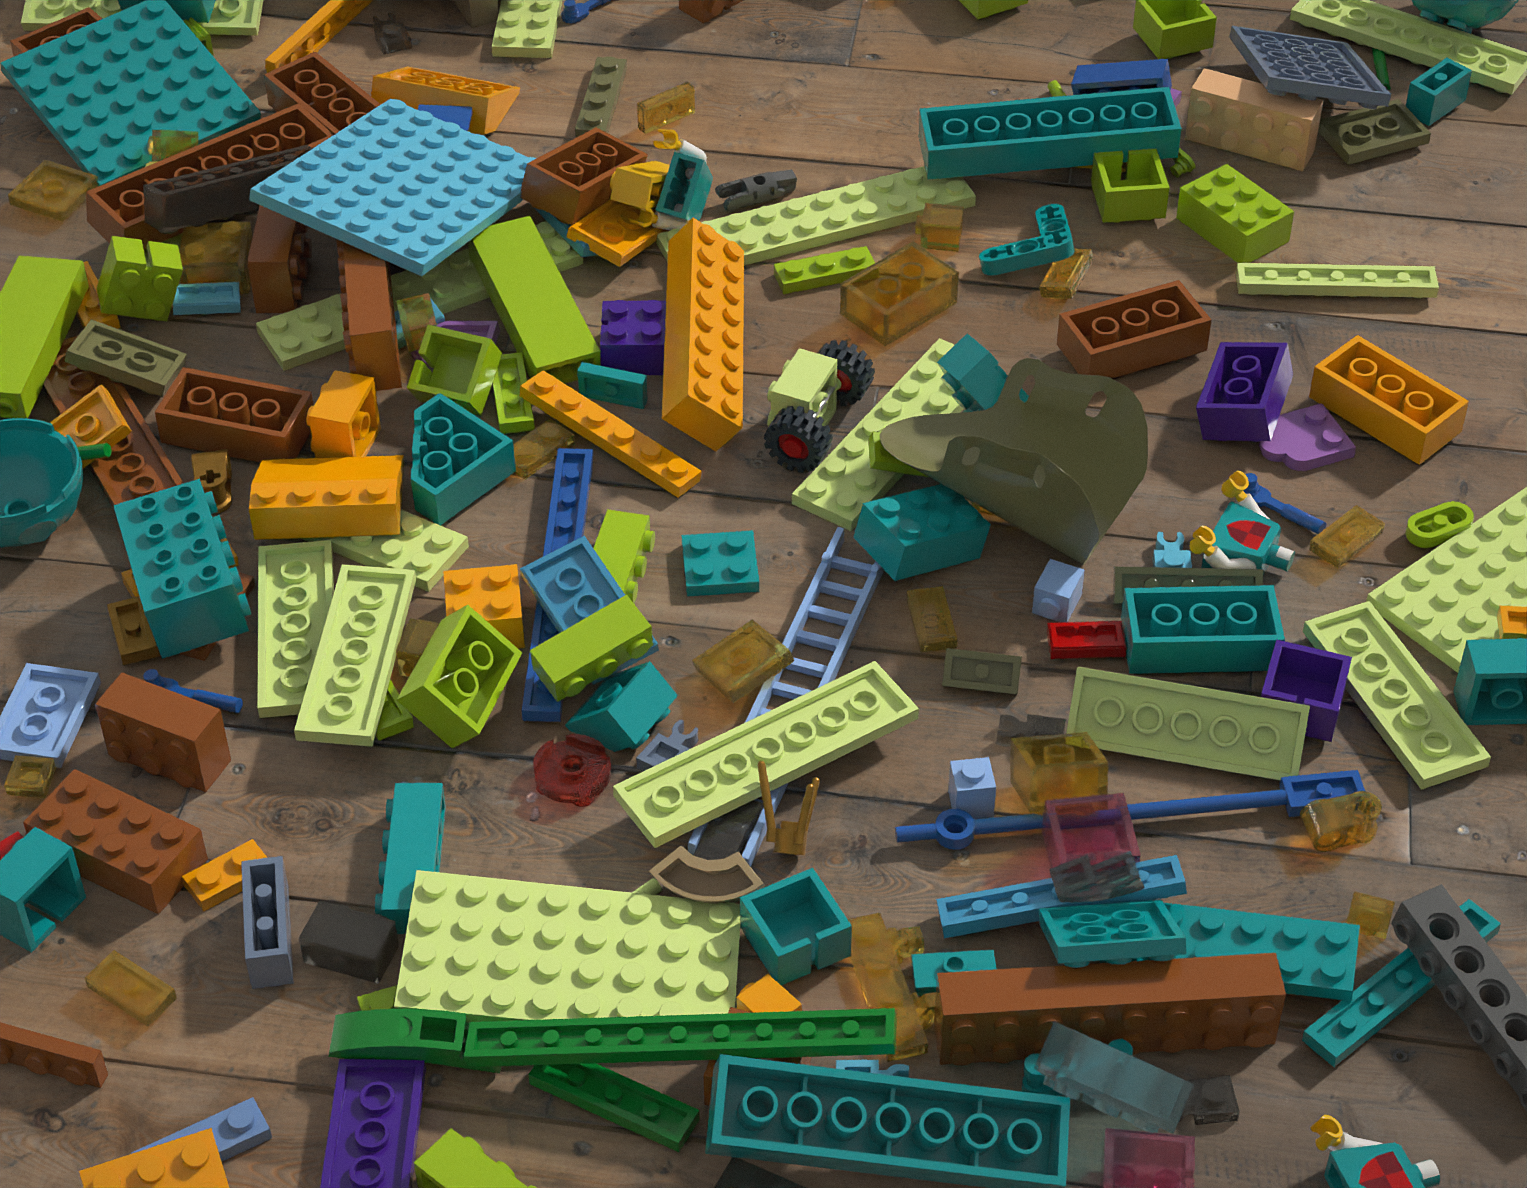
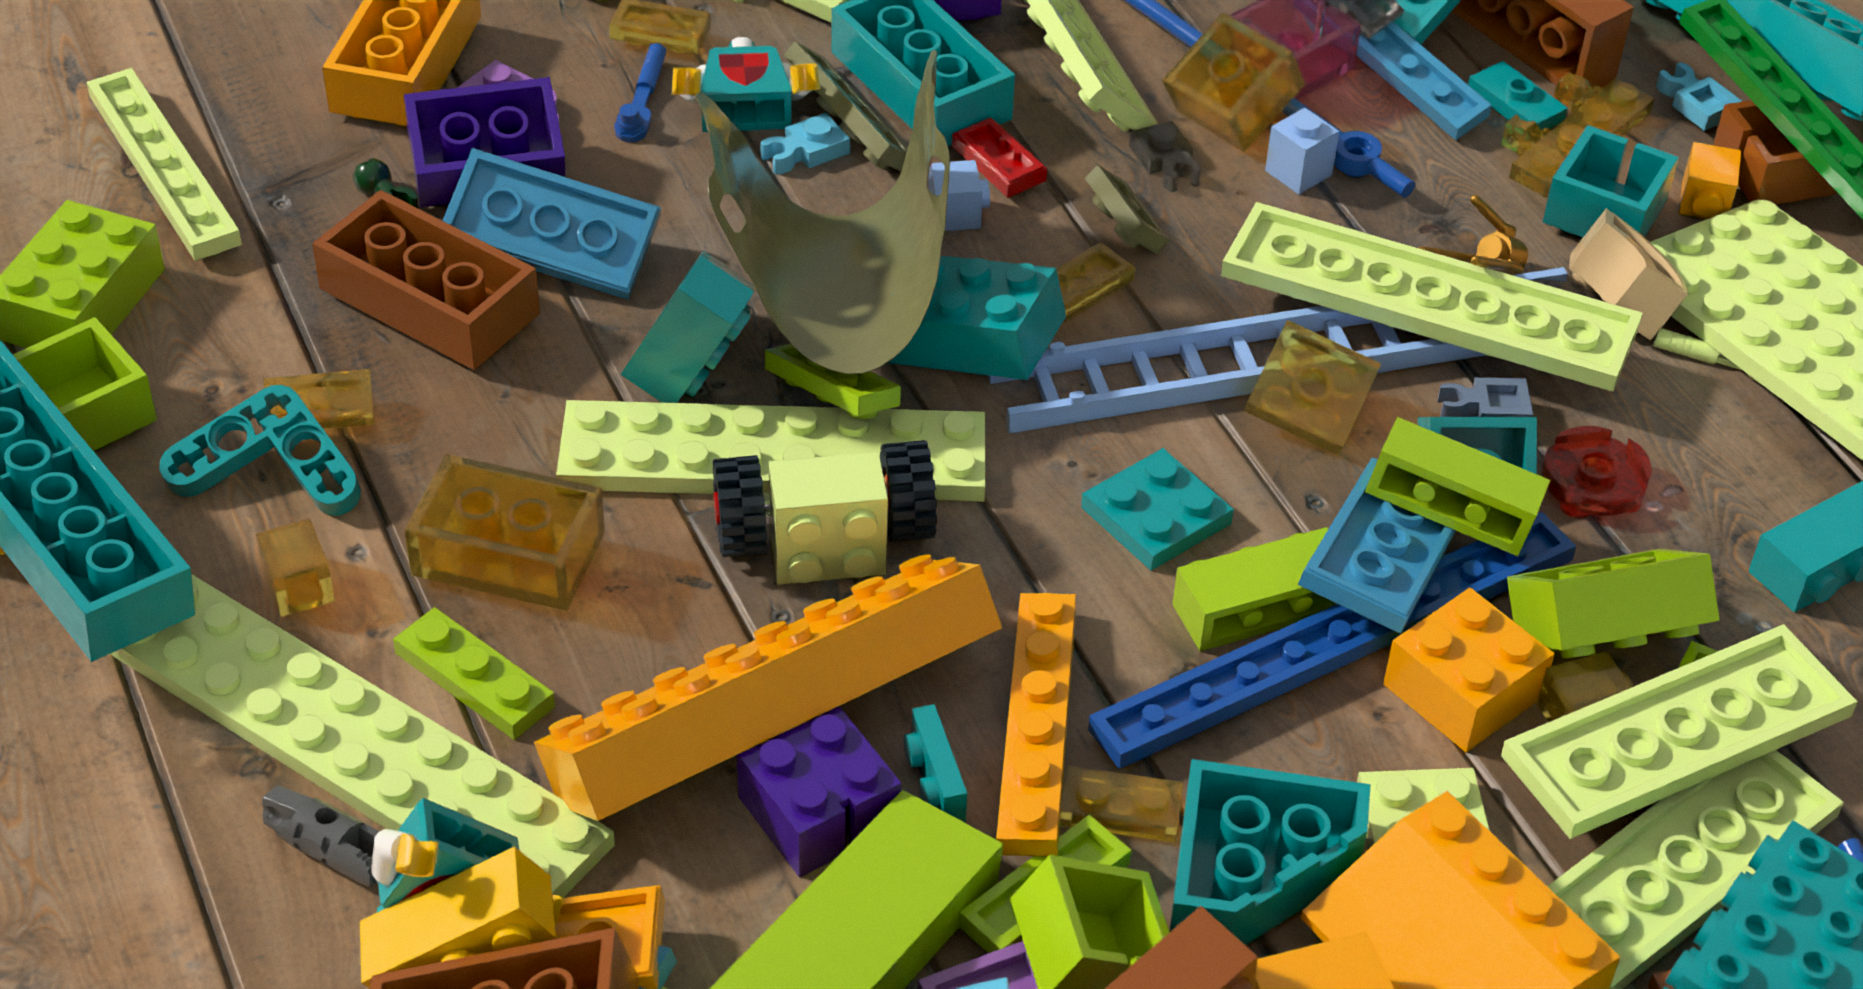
camera: 125 degrees left, 0 degrees up
(1165, 380) = (554, 222): none -> dark azure tile

